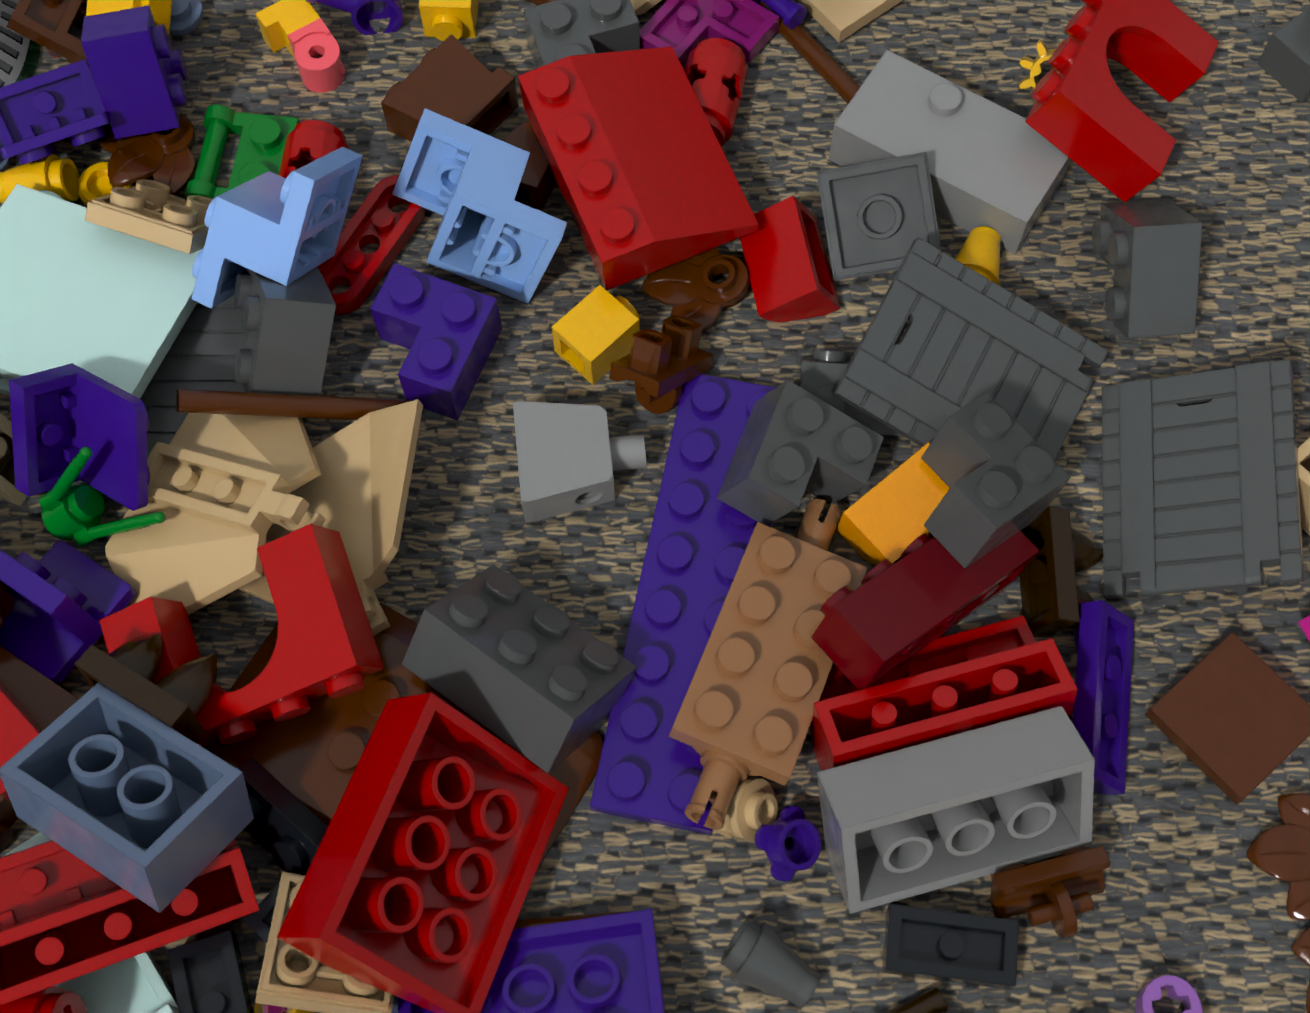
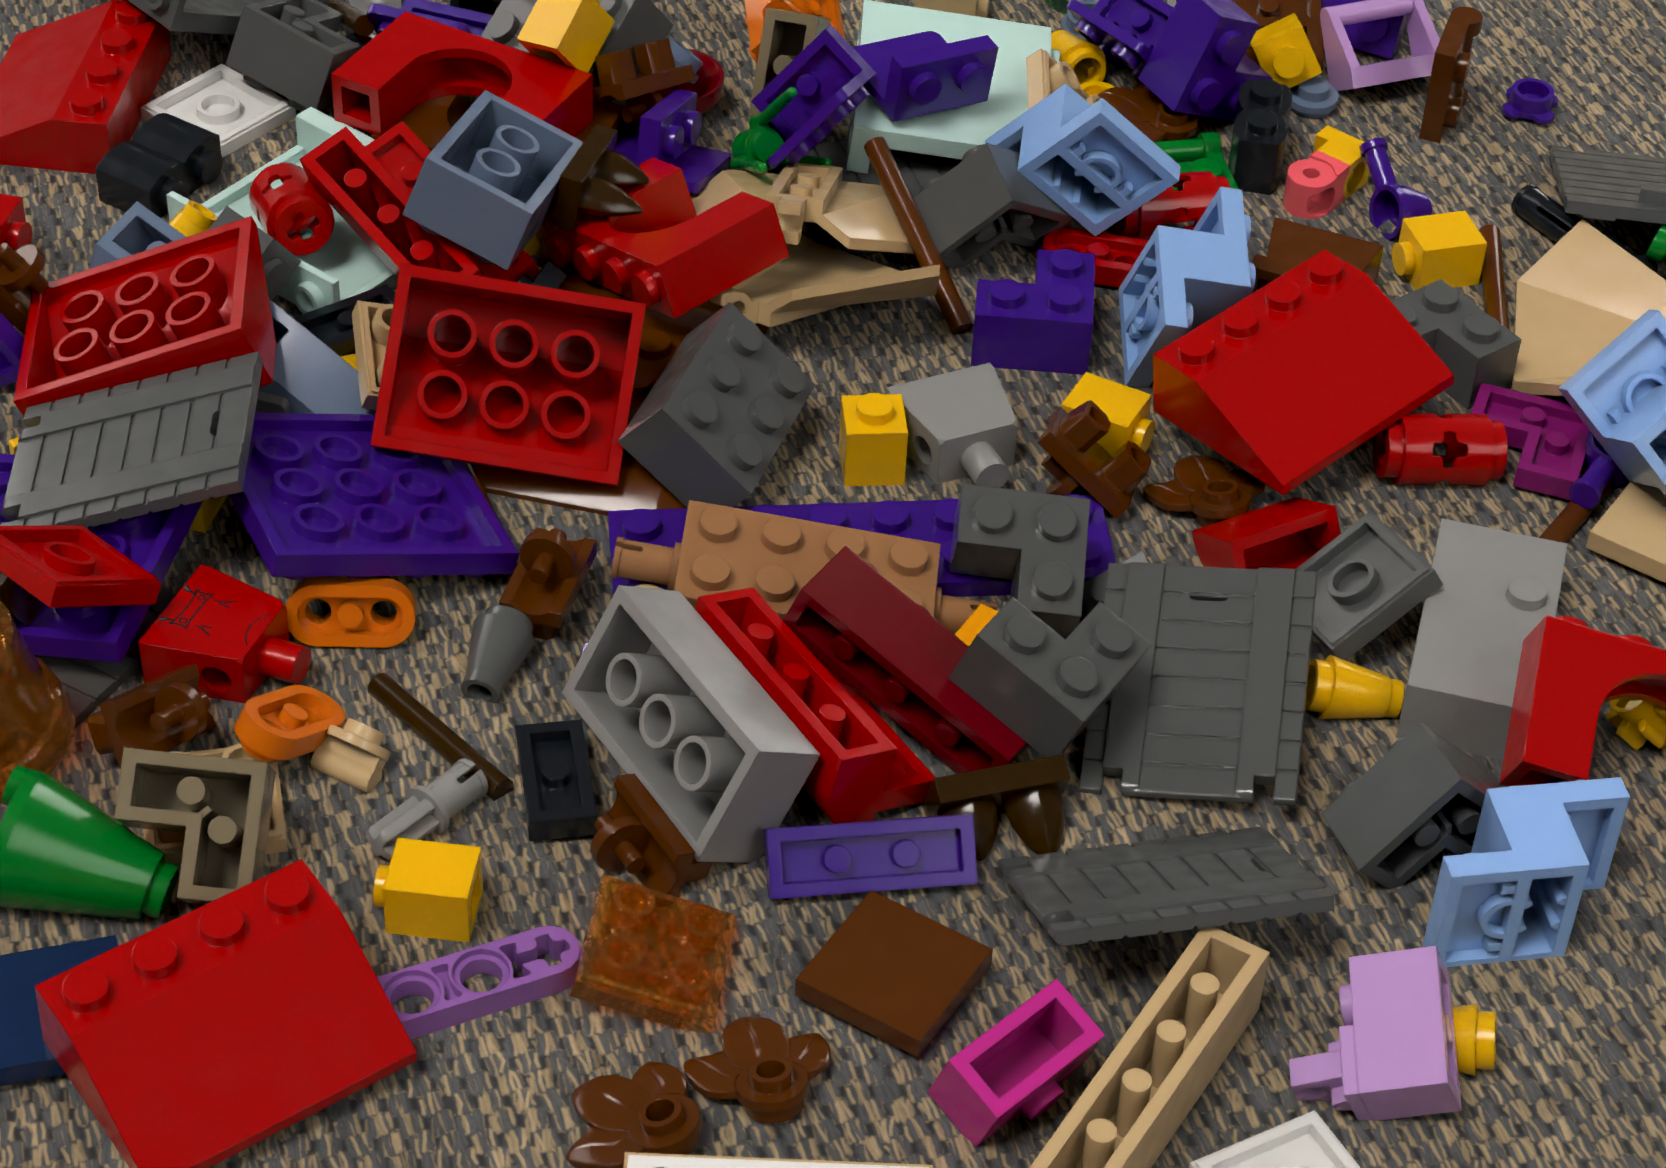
camera: 70 degrees right, 25 degrees down
(77, 319) = (927, 74): none -> dark purple bracket
(236, 71) = (1260, 135): none -> black brick
(571, 536) = (873, 439): none -> yellow brick
(692, 888) = (548, 578): none -> reddish brown hips
(1186, 913) = (654, 955): none -> clear orange tile
(1245, 216) = (1526, 871): none -> light blue bracket

